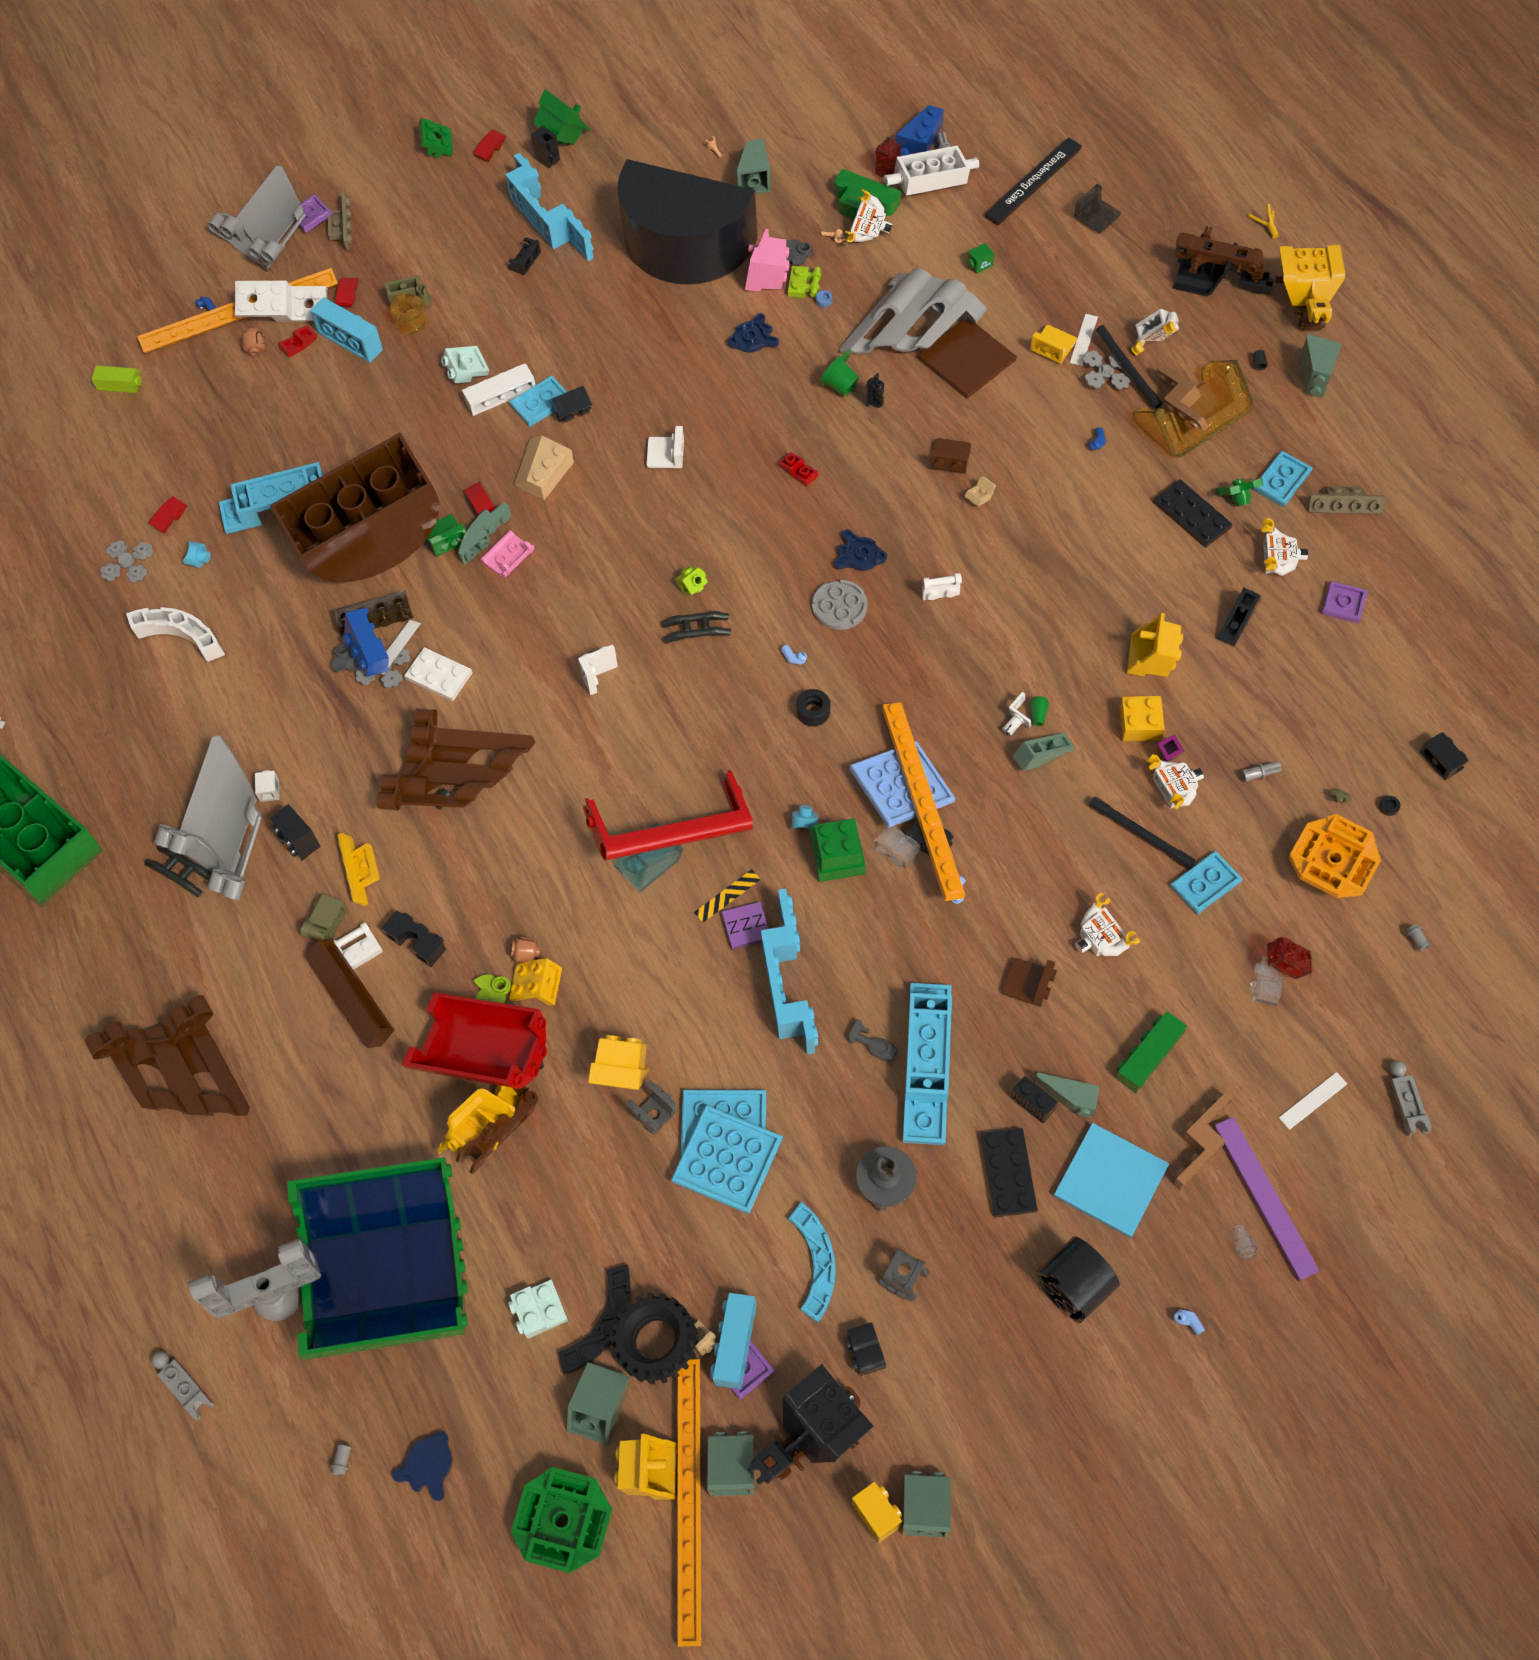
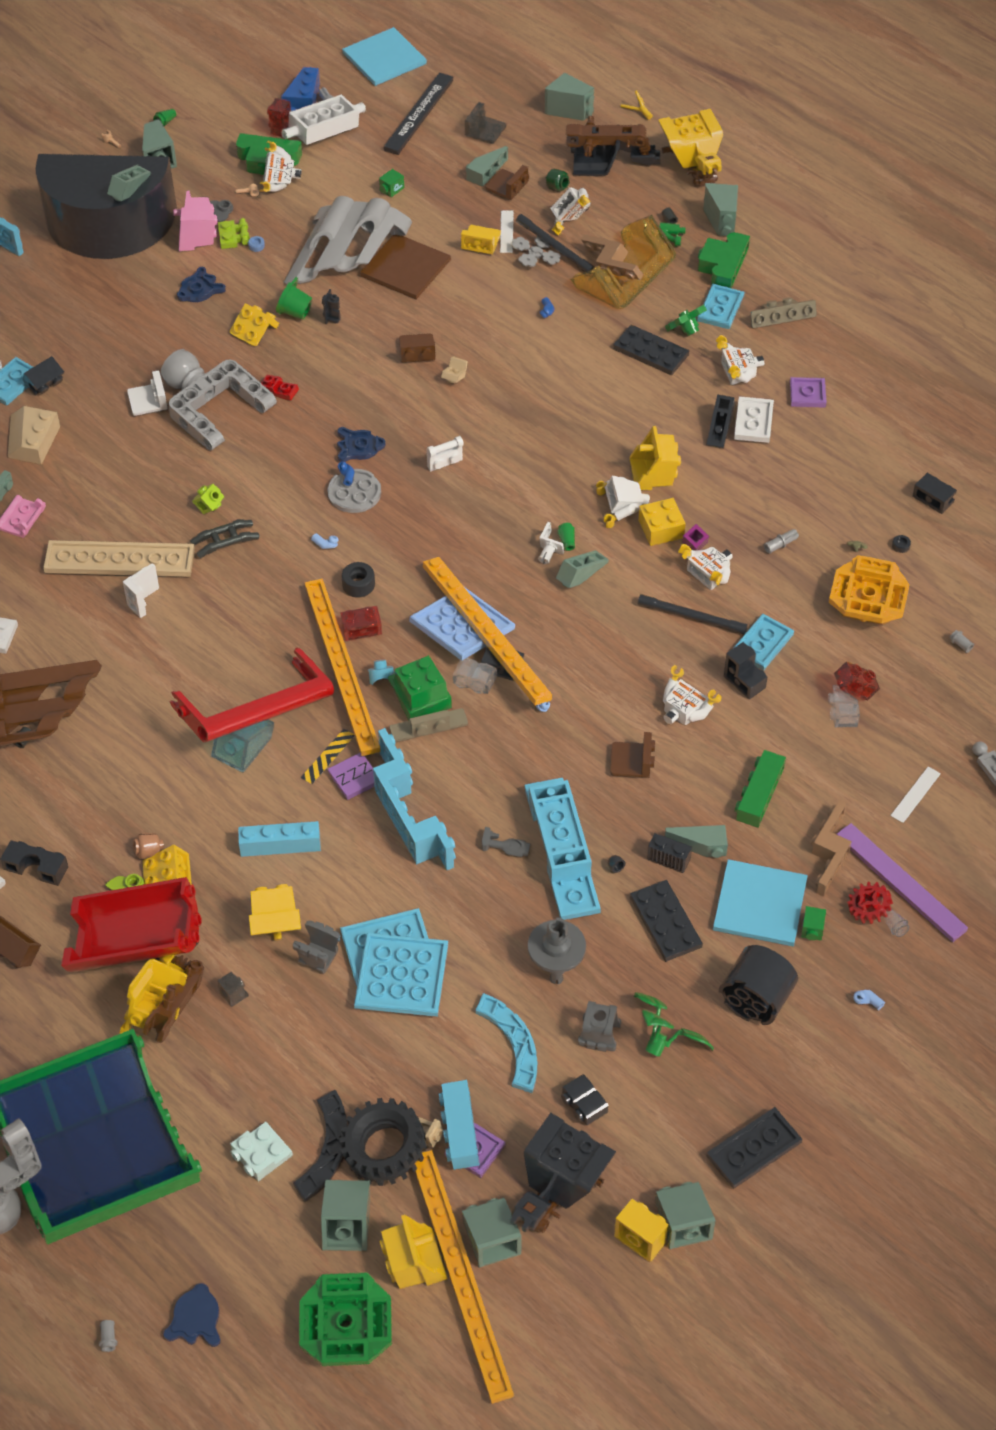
camera: 20 degrees left, 10 degrees down
(560, 1128) = (232, 989): none -> clear smoke brick
(588, 625) = (118, 558): none -> tan plate
(652, 977) = (279, 839): none -> medium azure brick
(703, 212) = (127, 182): none -> sand green slope
(708, 434) = (183, 372): none -> light grey piece
(768, 803) = (342, 667): none -> light orange plate
(772, 133) = (165, 116): none -> green cone
(792, 391) = (252, 324): none -> yellow bracket
(801, 758) = (361, 623): none -> clear red brick
(835, 888) = (429, 724): none -> dark tan bracket
(838, 584) = (347, 471): none -> blue arm
(960, 1302) = (657, 1039): none -> green plant
(977, 1095) = (616, 863): none -> black hinge
(1017, 106) = (384, 56): none -> medium azure tile
(1020, 1452) = (754, 1147): none -> black plate
(1084, 259) = (485, 166): none -> sand green slope
(1101, 284) = (507, 183): none -> reddish brown bracket
(1109, 682) = (623, 498): none -> white torso
(1153, 291) = (557, 180): none -> dark green head
(1158, 1221) = (813, 923): none -> green brick
(1173, 914) = (742, 672): none -> black brick
(1194, 198) = (569, 98): none -> sand green slope
(1229, 1206) = (869, 902): none -> red gear
(1252, 374) = (673, 229): none -> green plant
(1276, 621) = (754, 419): none -> white plate
(1302, 423) = (723, 258): none -> green brick

